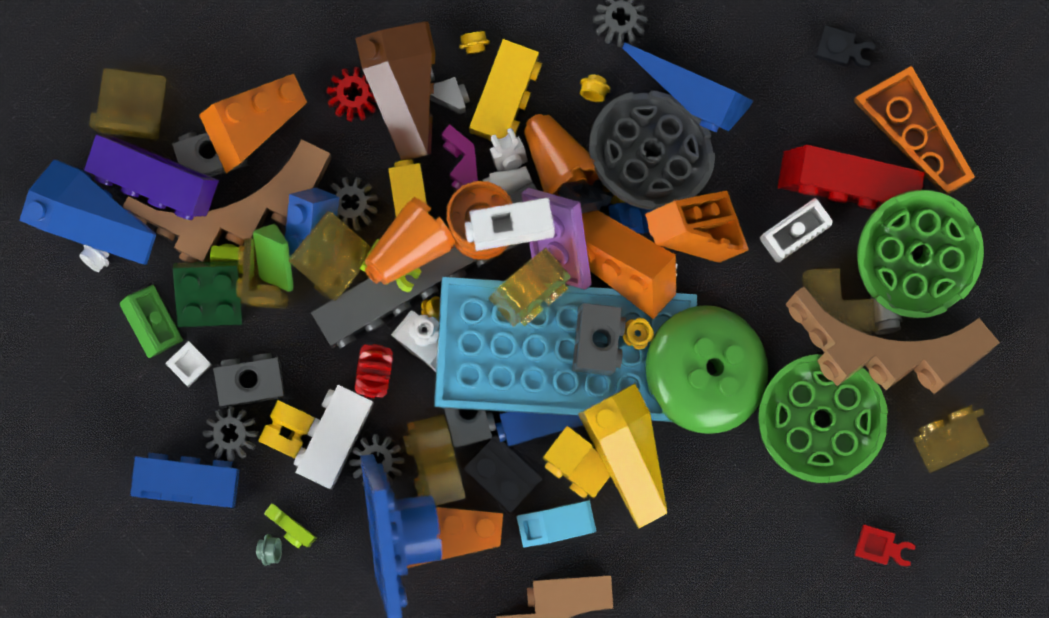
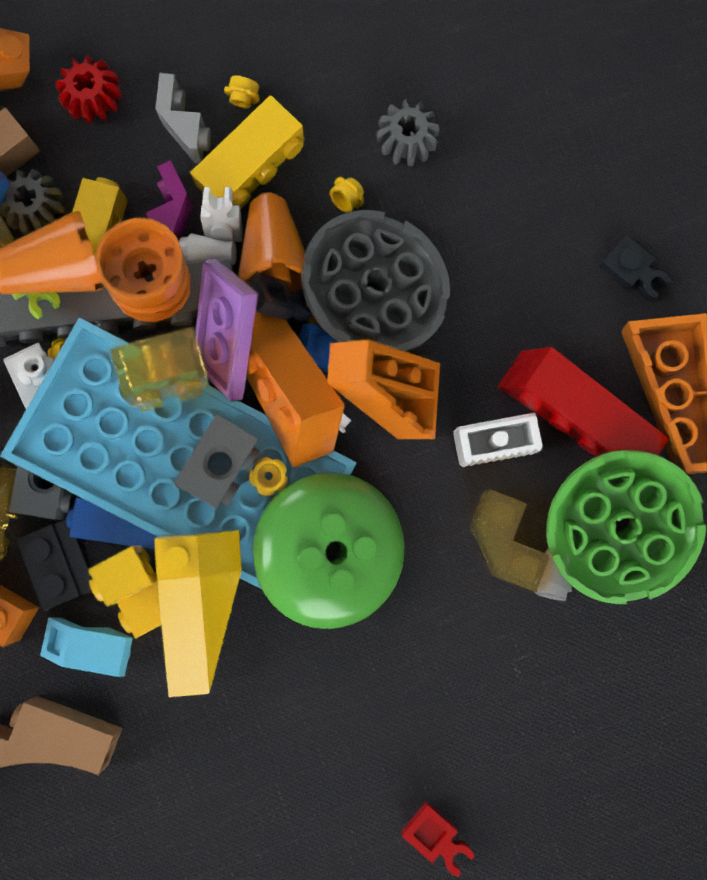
camera: 30 degrees right, 0 degrees up
(399, 76) = (137, 74): reddish brown wedge -> none
(510, 224) = (160, 281): white brick -> none
(703, 98) = (461, 250): blue wedge -> none
(818, 453) = (442, 704): bright green brick -> none
(888, 361) = (495, 602): medium nougat arch -> none
(949, 442) = (569, 750): clear yellow bracket -> none

